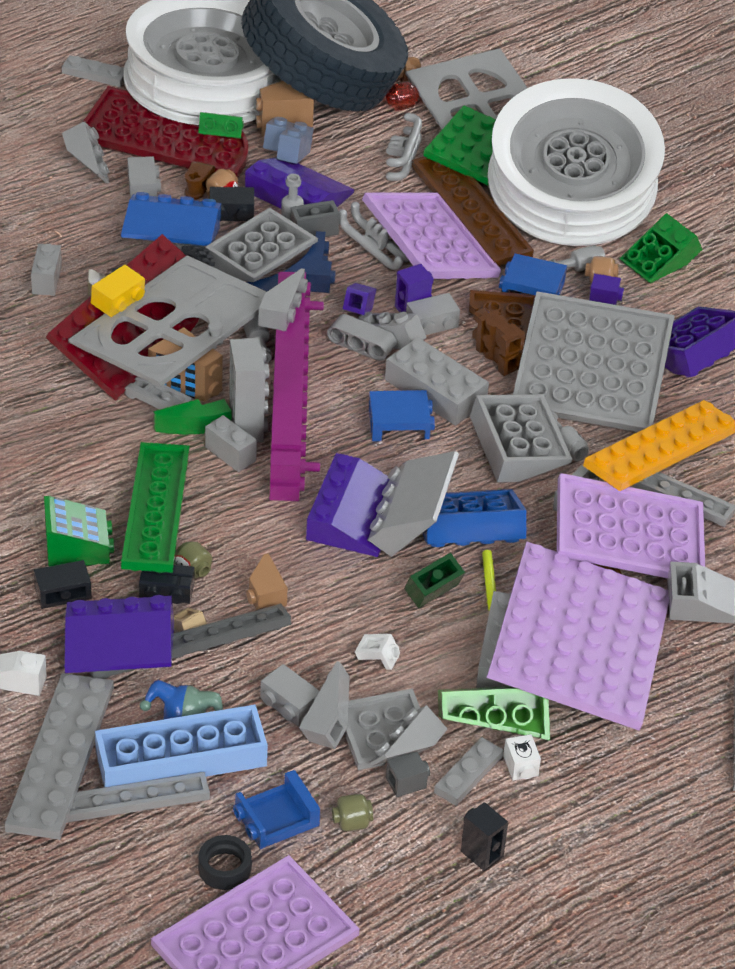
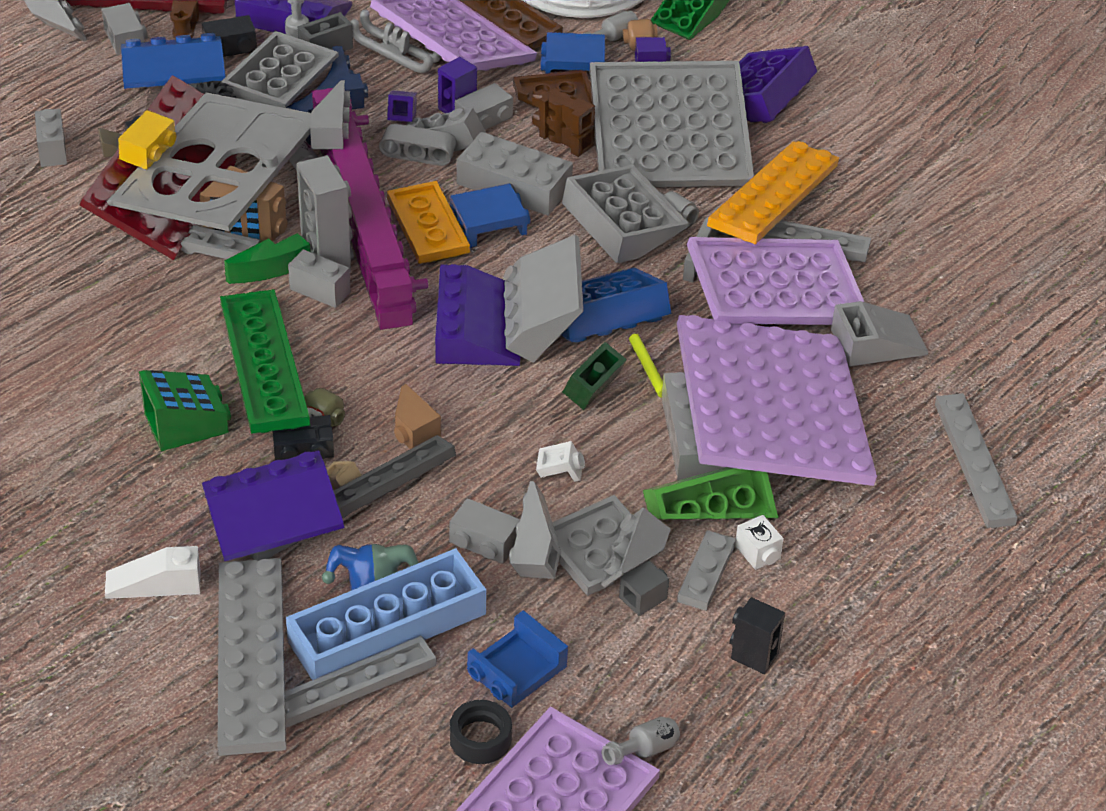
camera: 15 degrees left, 0 degrees up
(62, 584) = (185, 465): black brick -> none
(221, 178) = (209, 12): medium nougat head -> none
(344, 411) = (428, 222): none -> light orange plate
(352, 812) = (601, 643): olive head -> none
(356, 901) = (644, 740): none -> light grey piece

